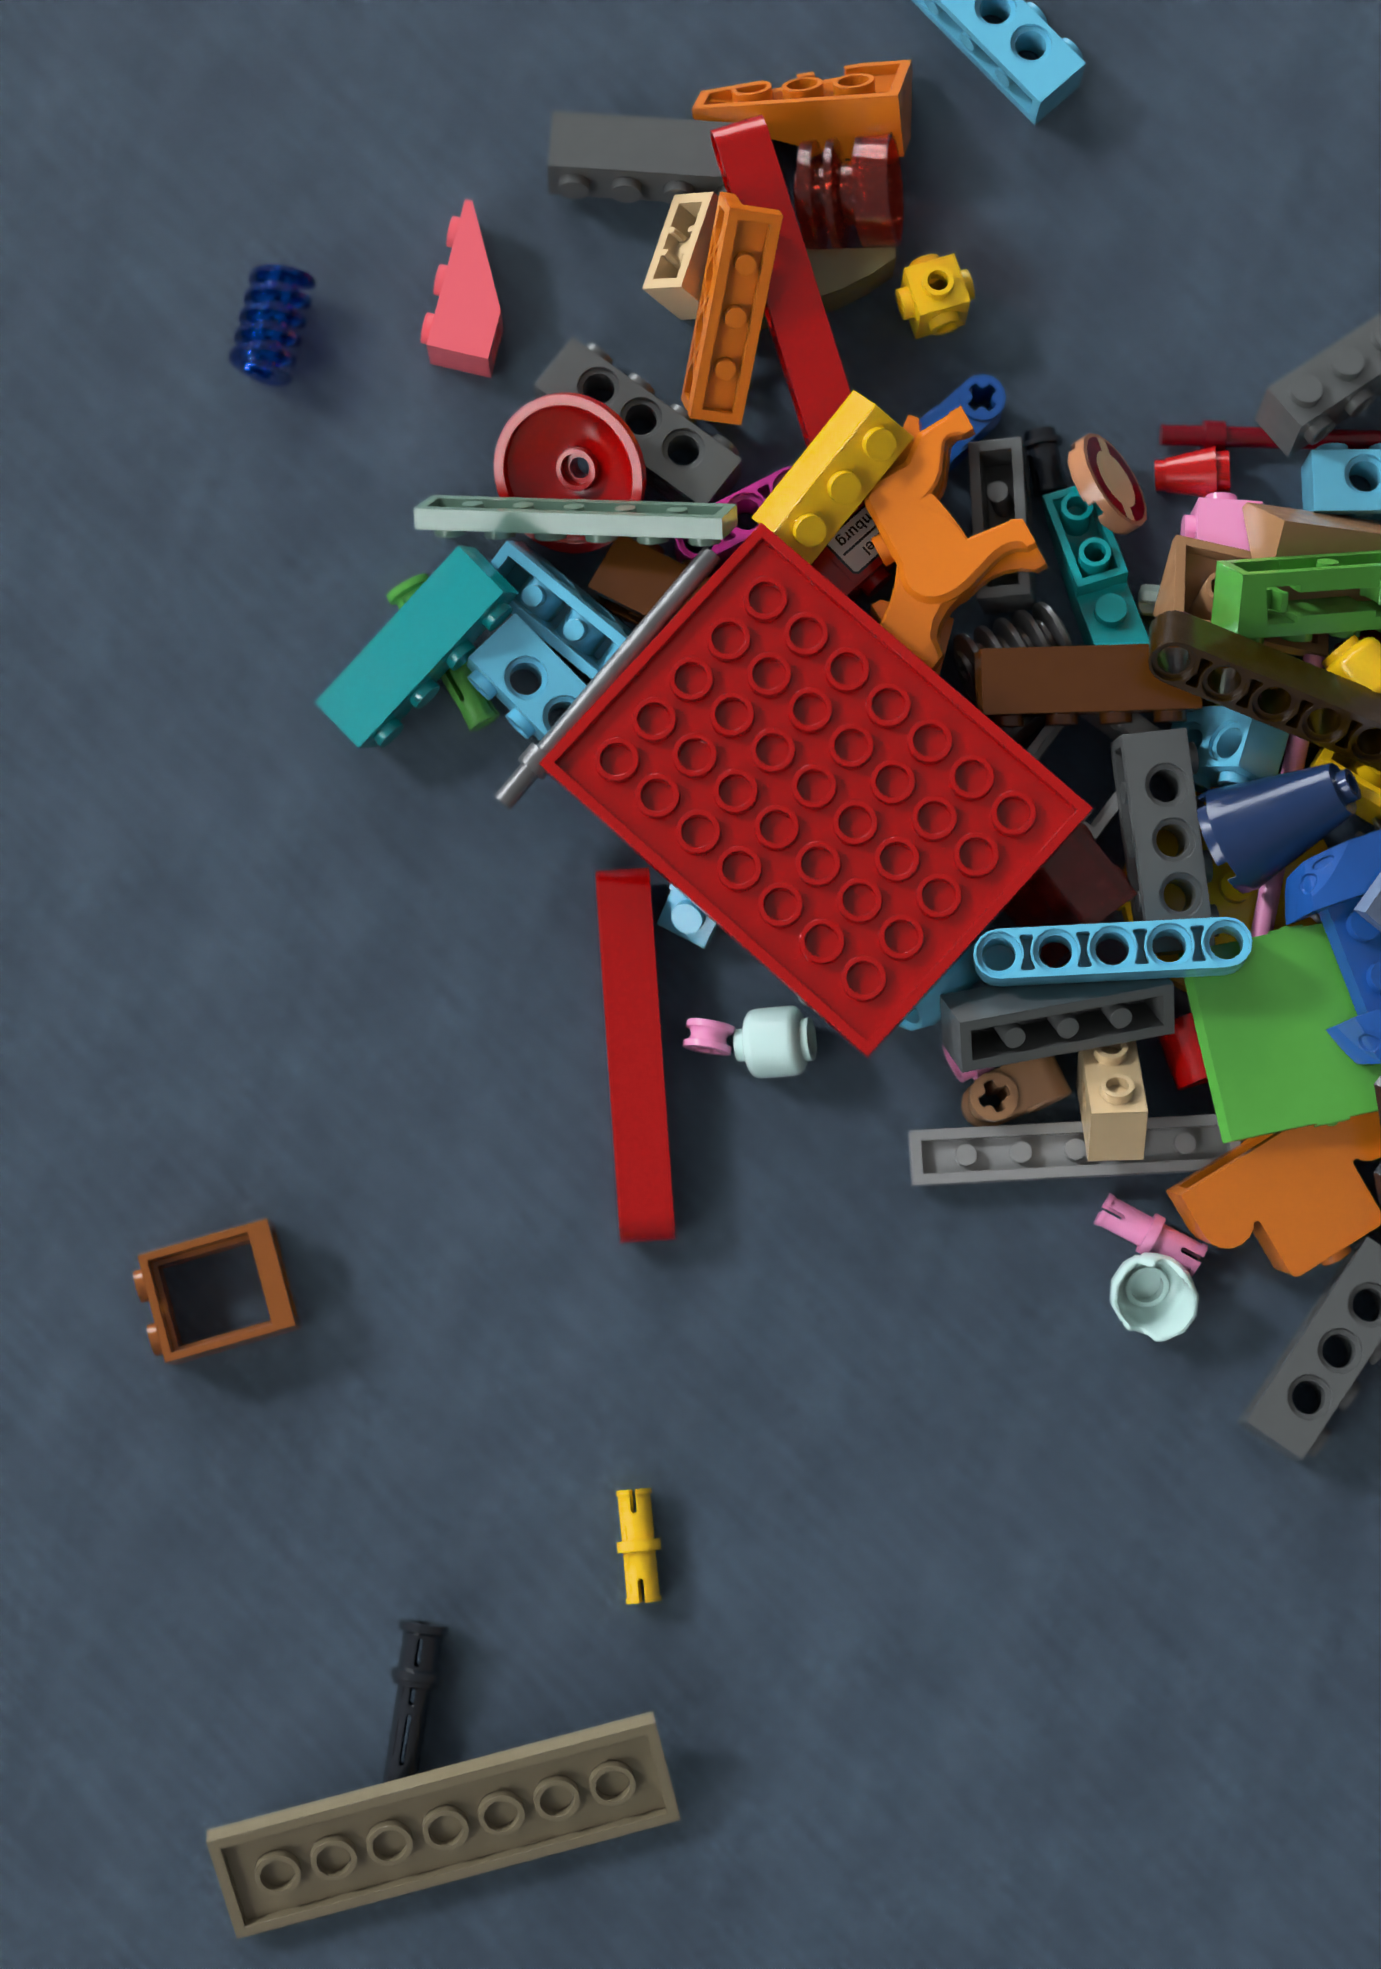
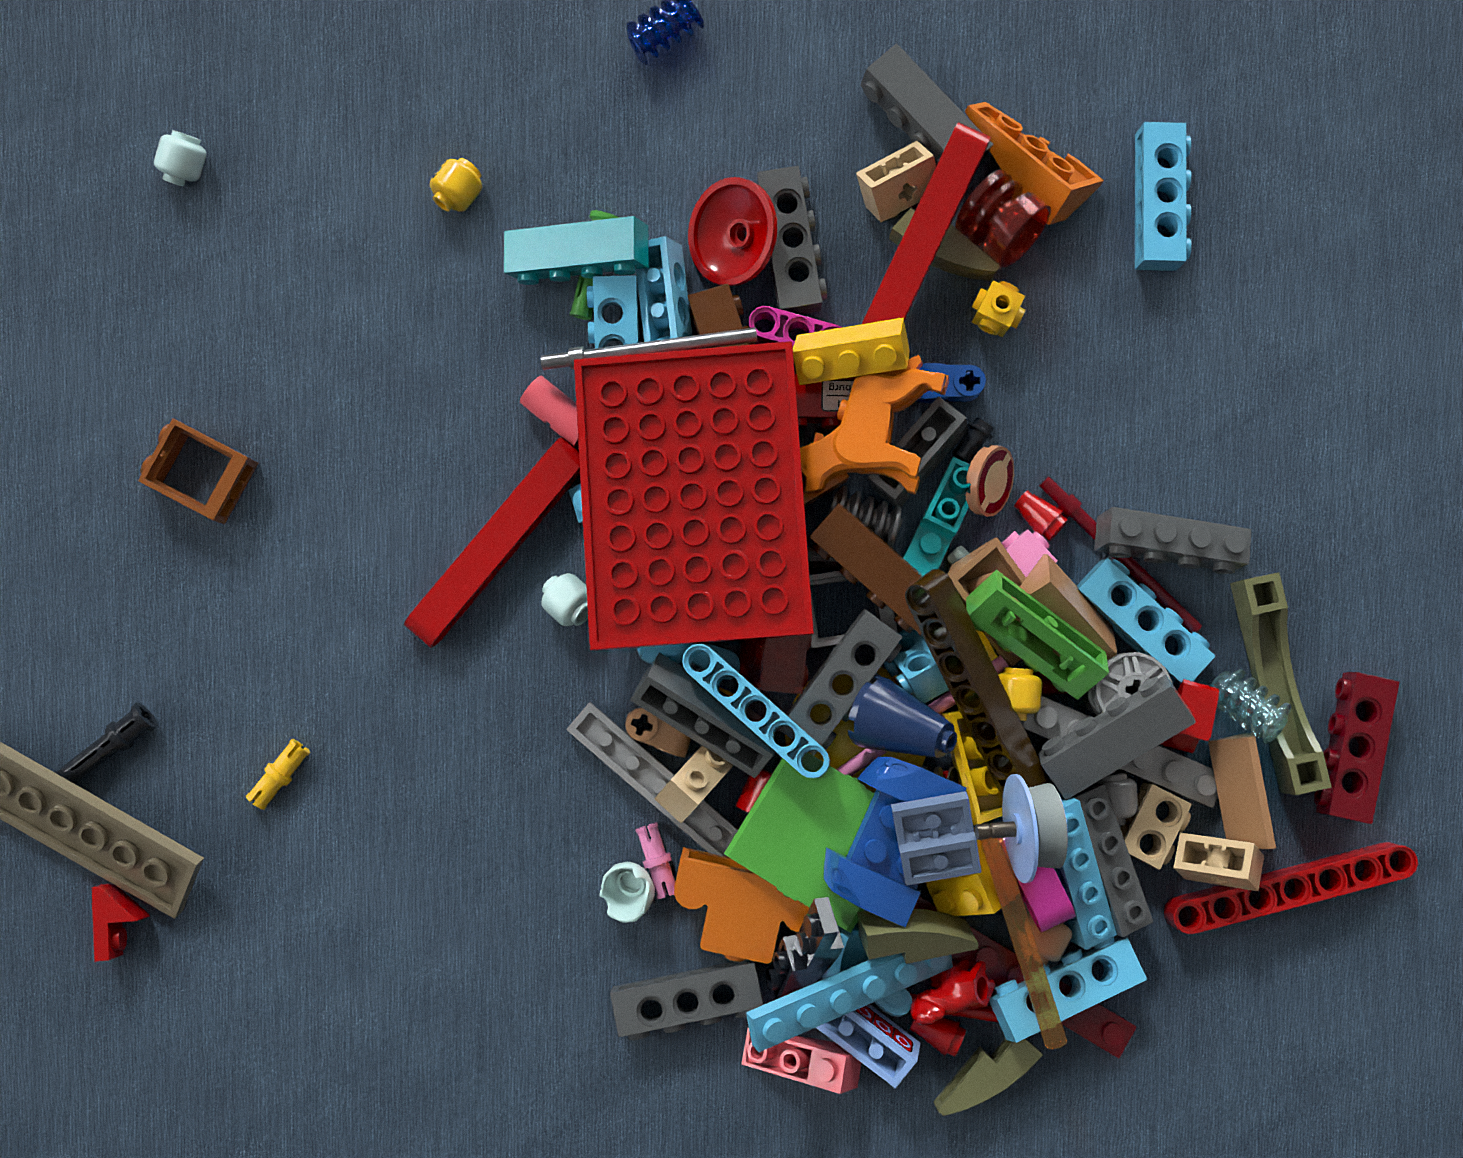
camera: 45 degrees right, 5 degrees up
(205, 705) = (456, 185): none -> yellow head
(468, 314) = (762, 108): coral slope -> none
(560, 844) = (553, 407): none -> coral pin
(596, 519) = (706, 250): sand green plate -> none
(599, 1879) = (110, 909): none -> red slope
(708, 1036) = (539, 567): bright pink bush -> none
(730, 310) = (883, 223): orange fence -> none

